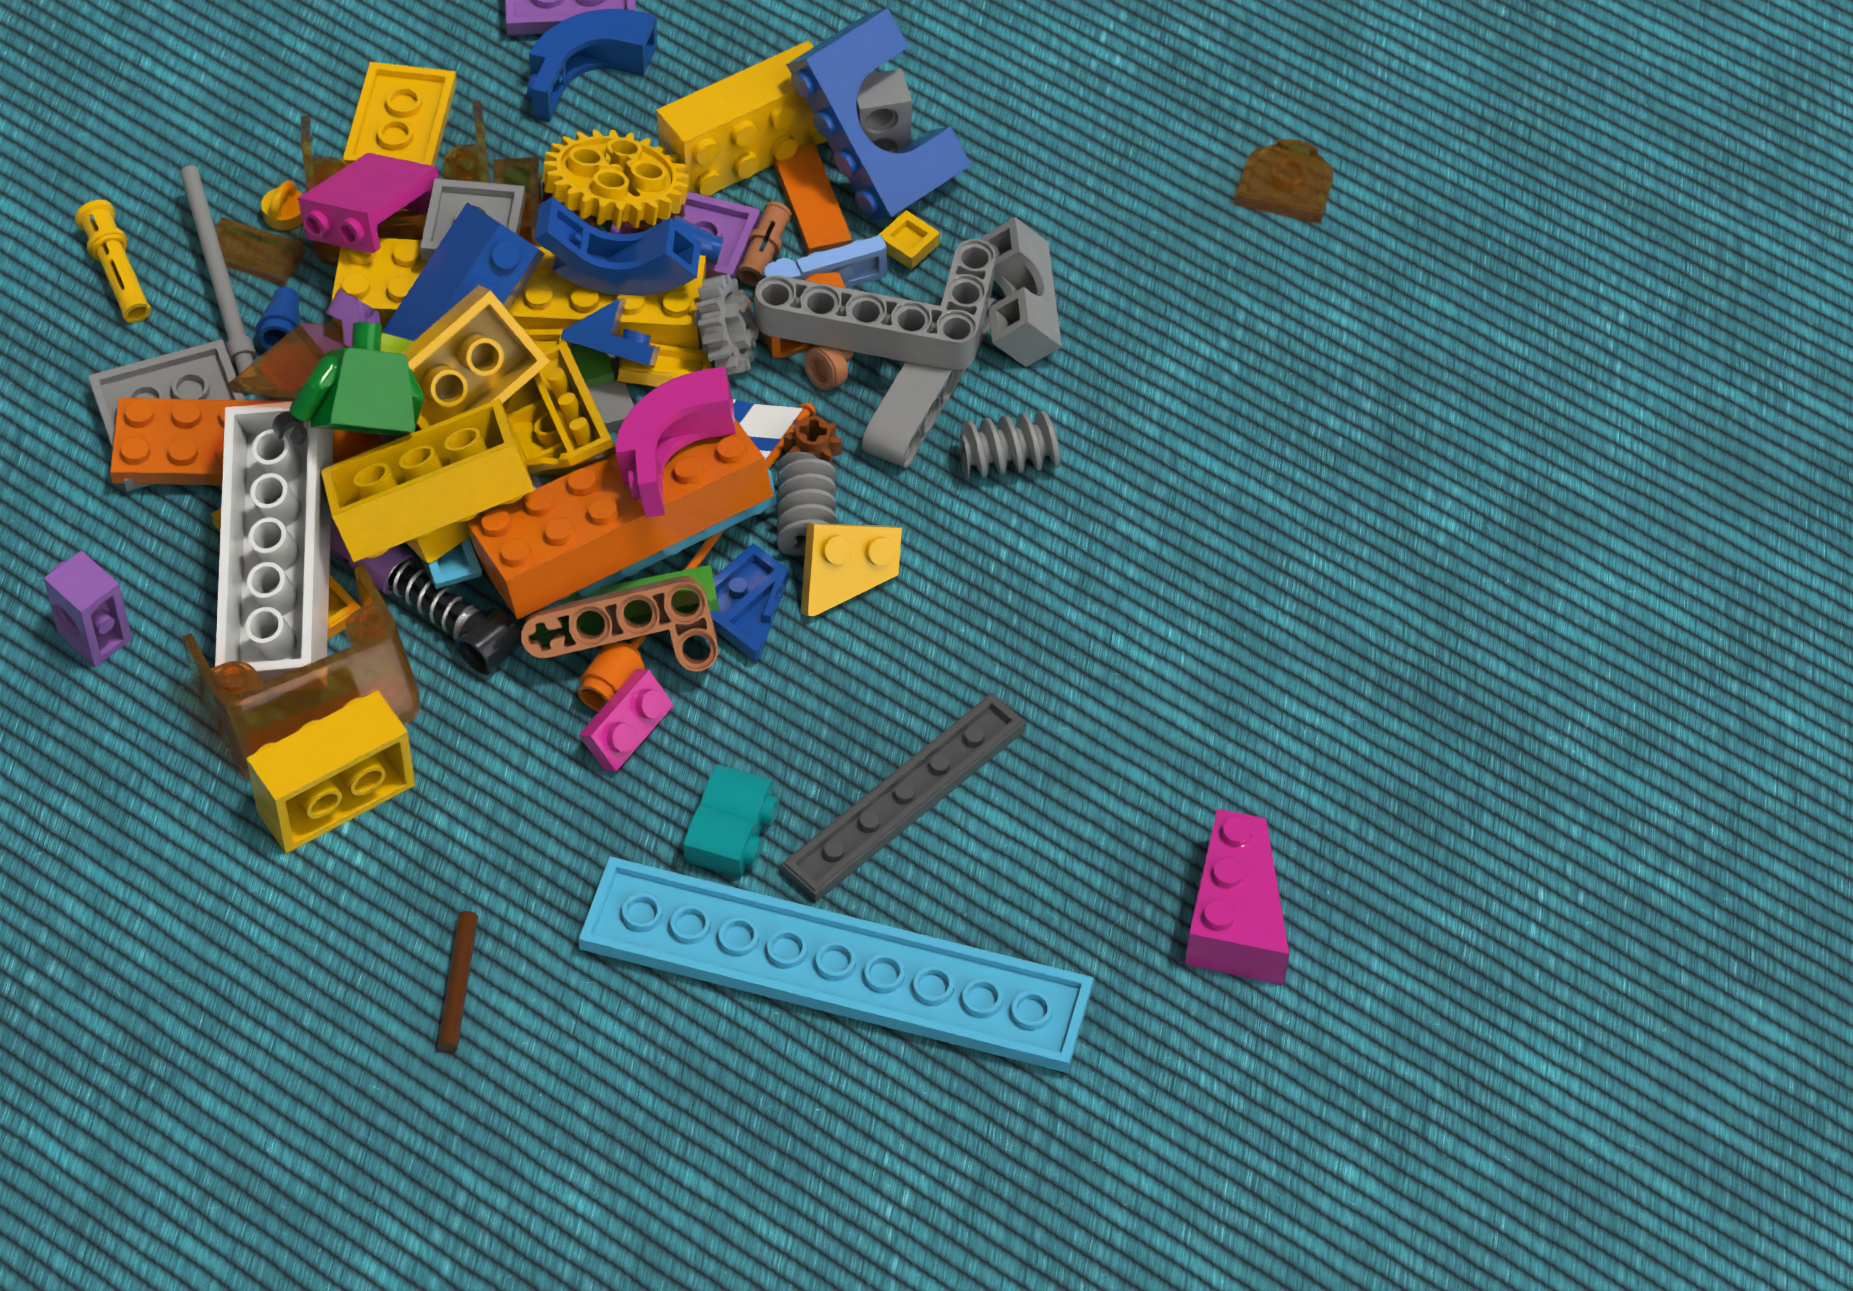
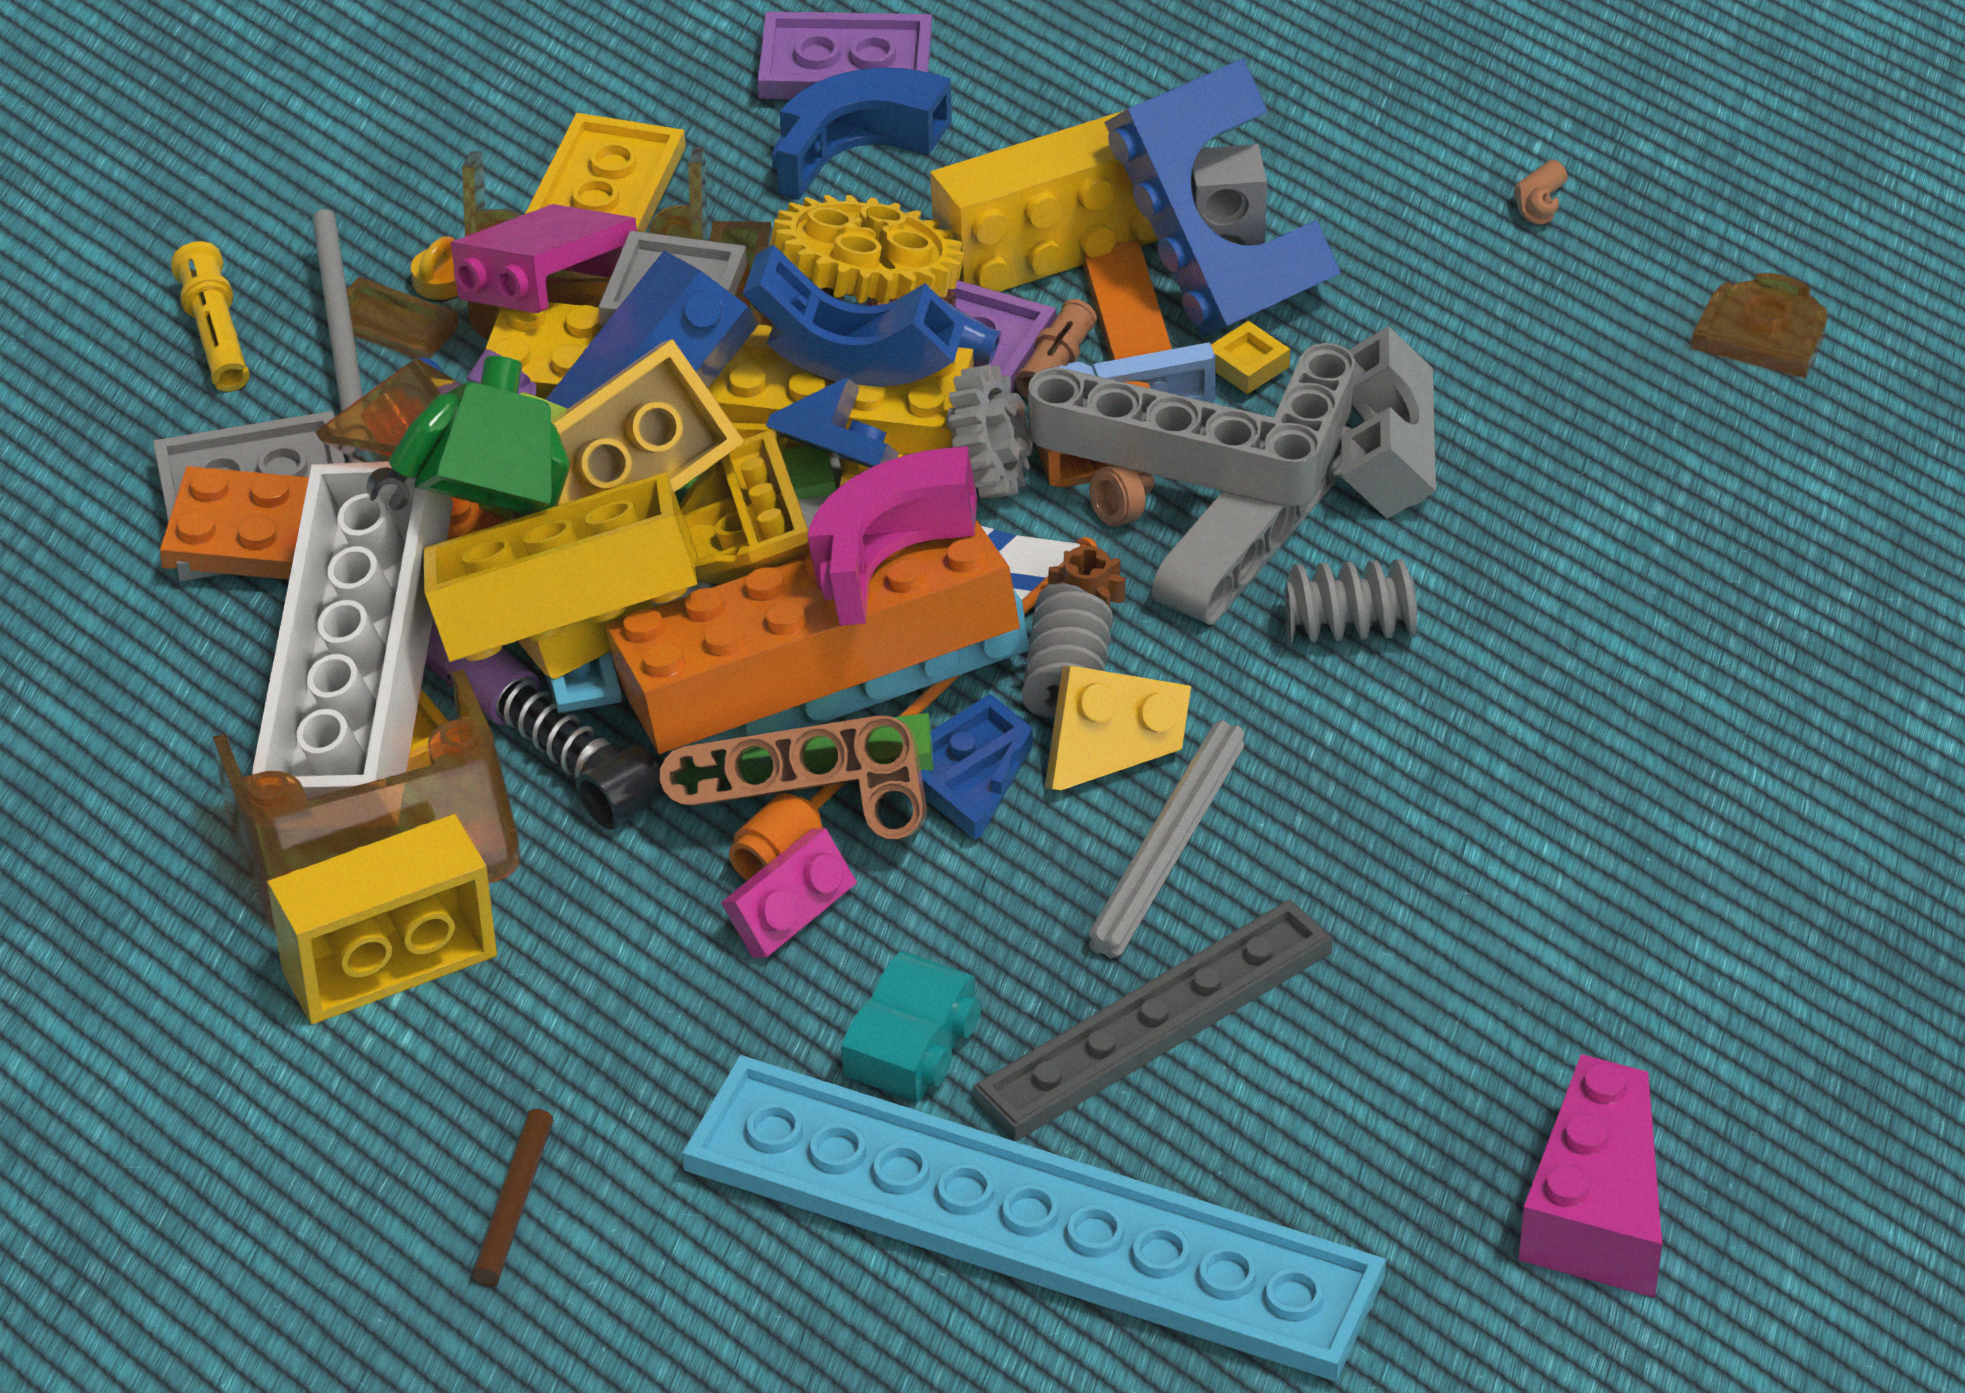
camera: 10 degrees right, 10 degrees down
(88, 608) = (99, 703): medium lavender brick -> none
(896, 650) = (1166, 840): none -> light grey axle
(1106, 79) = (1534, 192): none -> nougat arm

